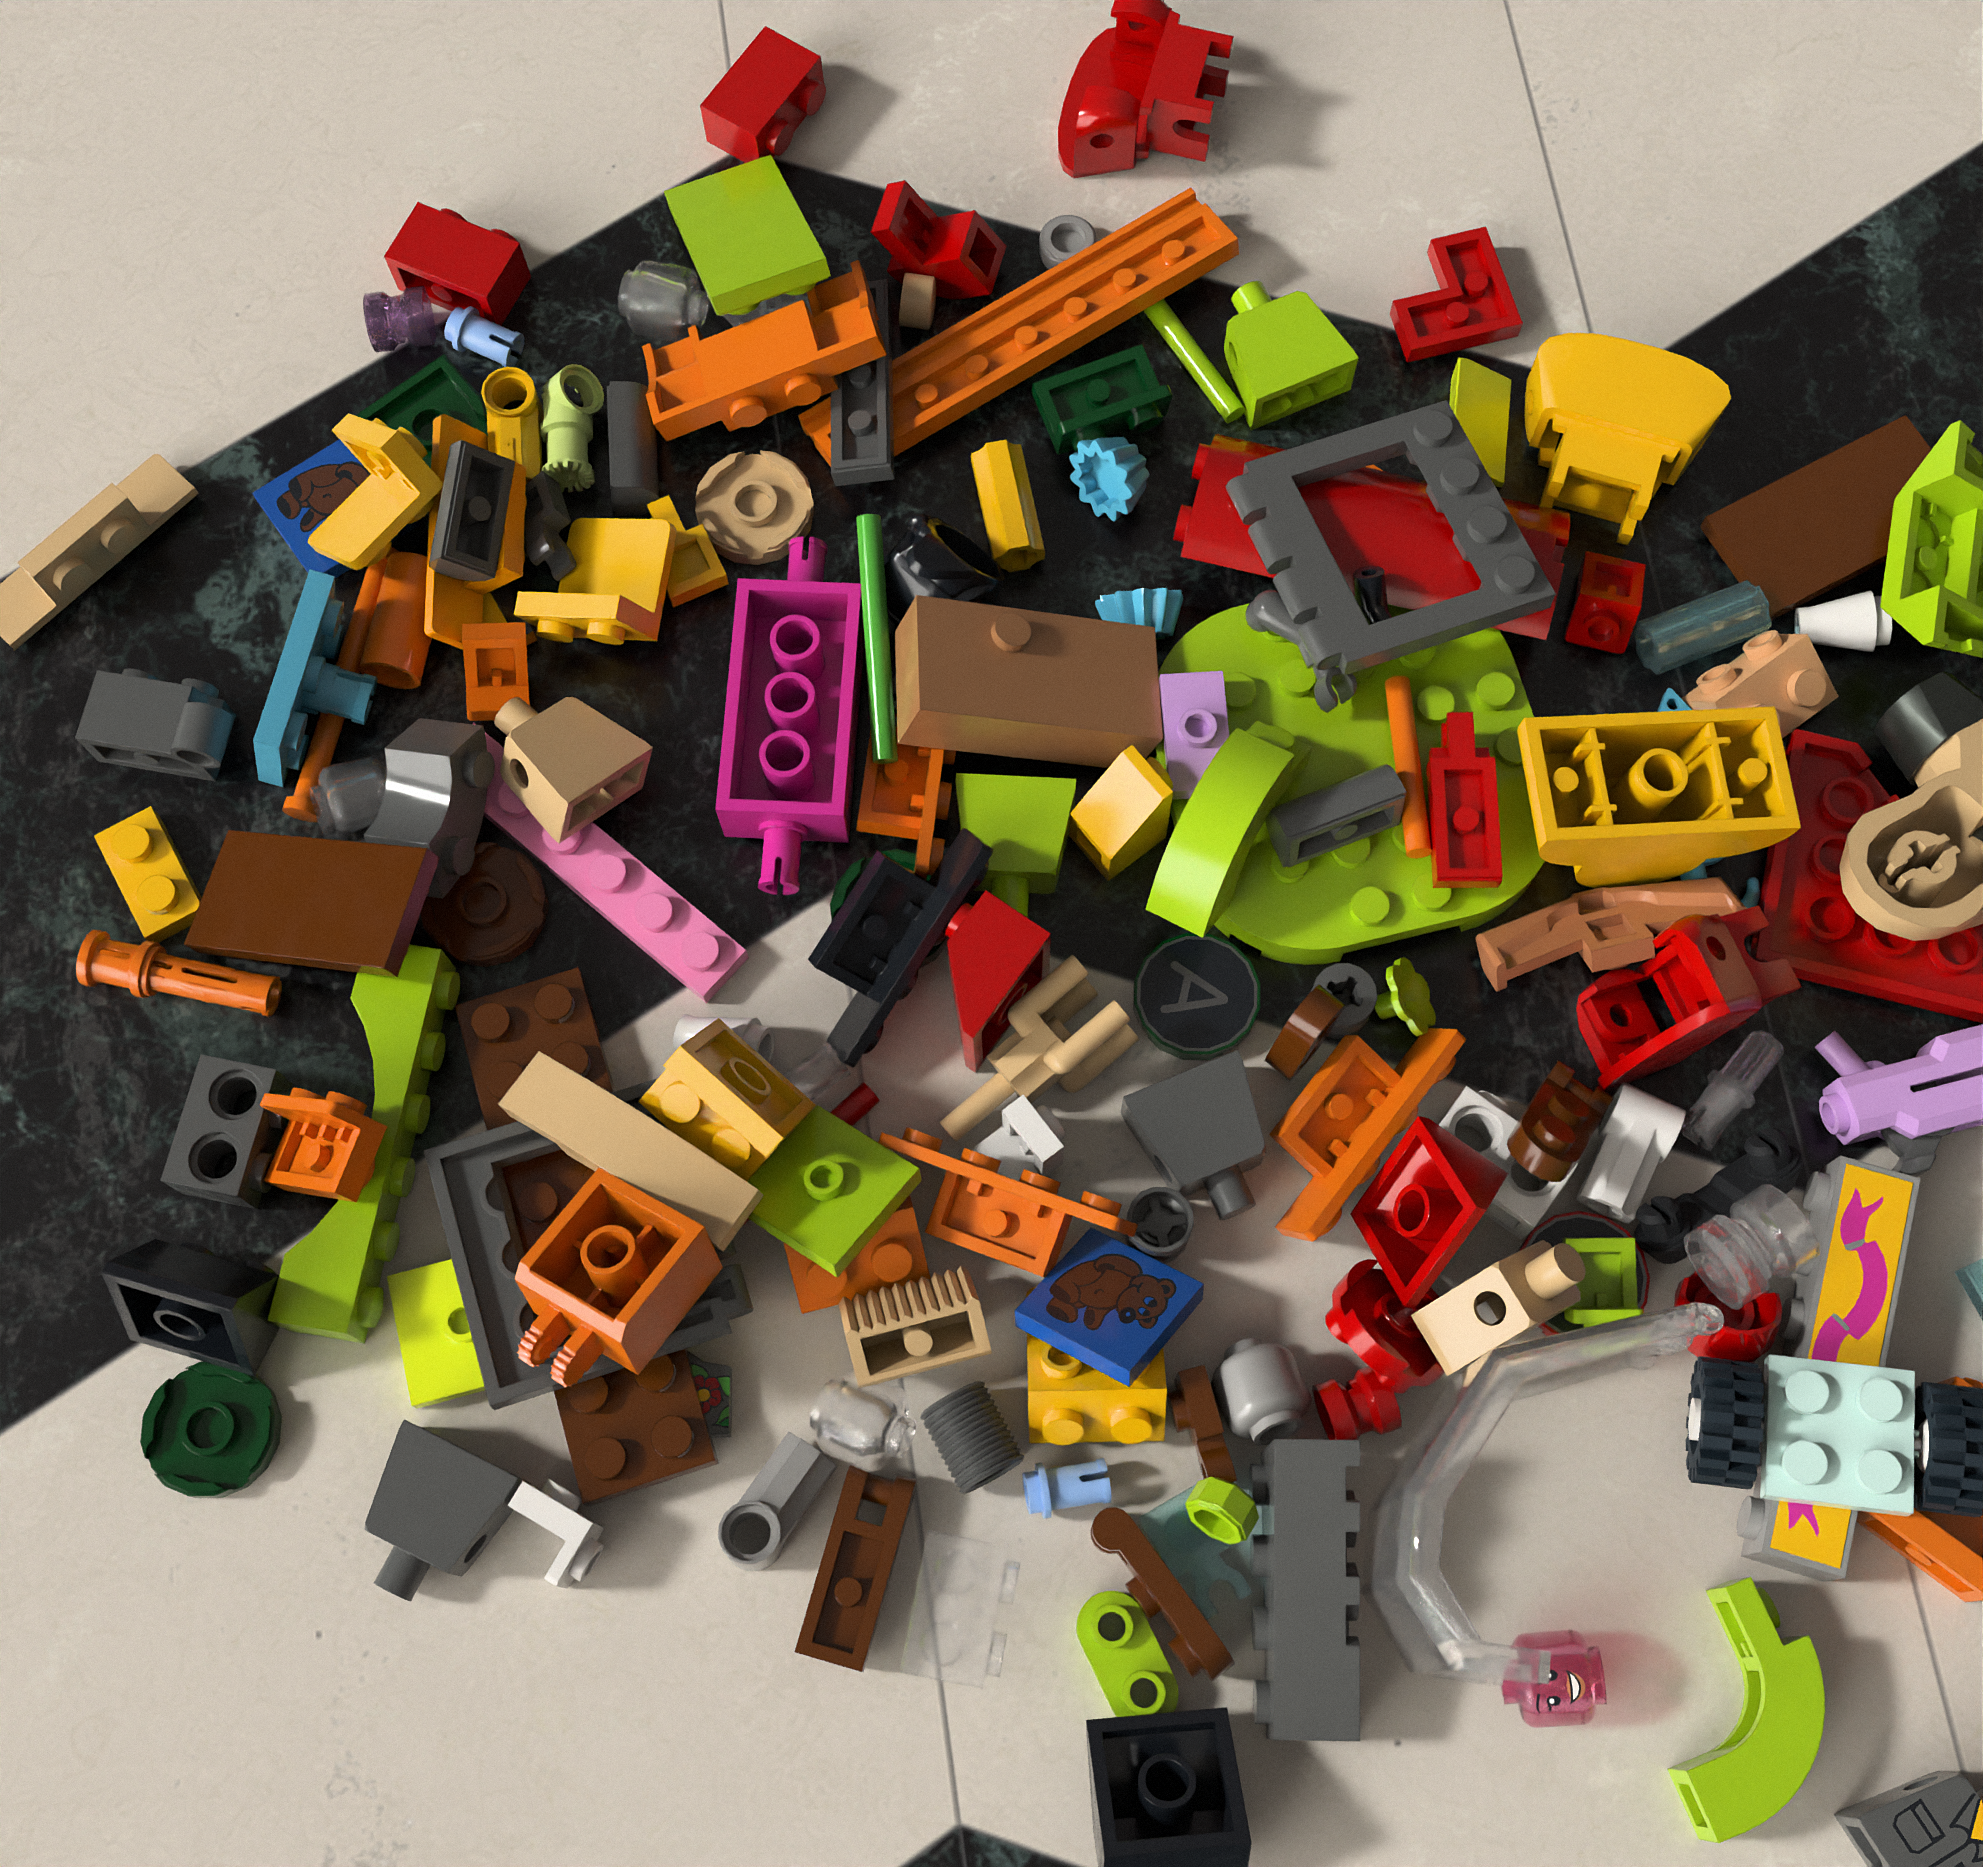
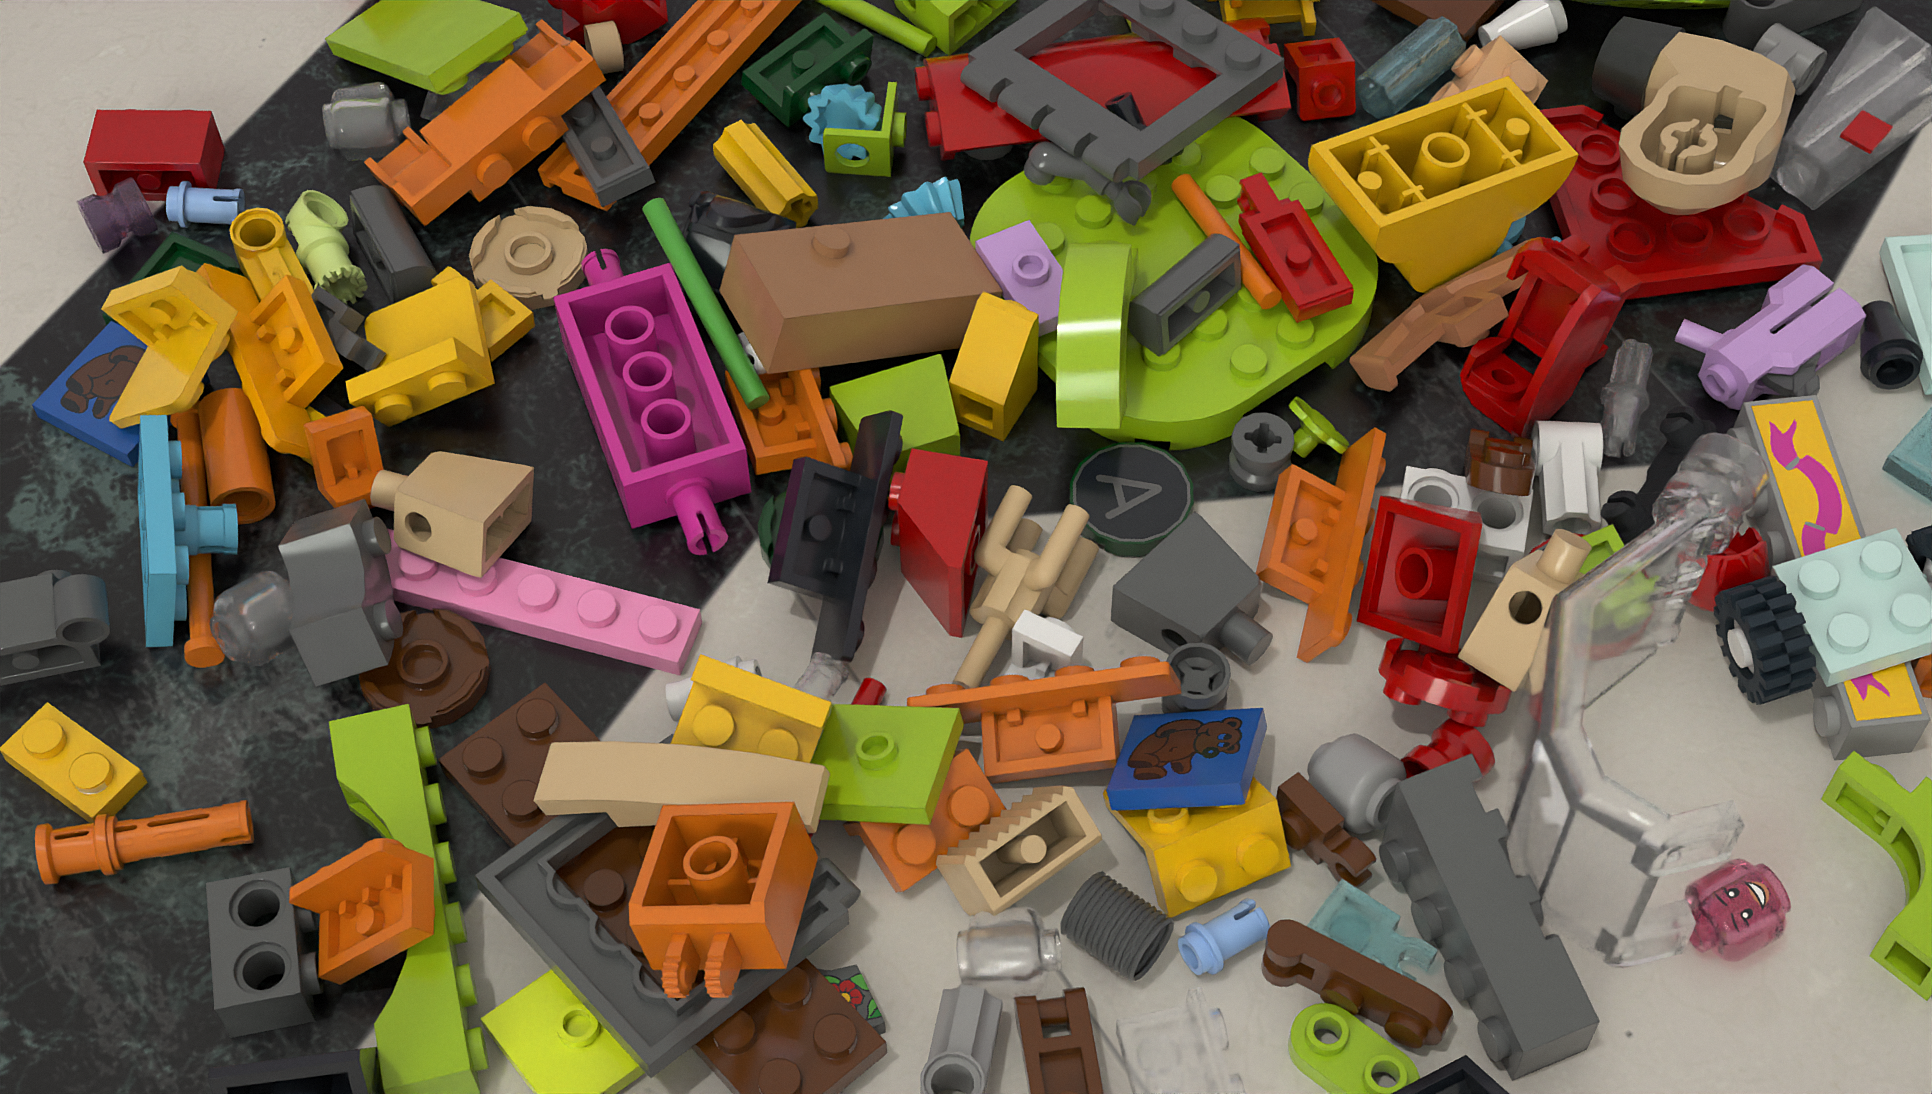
camera: 25 degrees left, 15 degrees down
(313, 902) = (259, 710): reddish brown tile -> none
(471, 513) = (274, 327): dark grey brick -> none
(1128, 520) = (878, 143): none -> lime bracket
(1222, 1510) = (1377, 880): lime tile -> none
(1304, 1032) = (1245, 478): reddish brown beam -> none

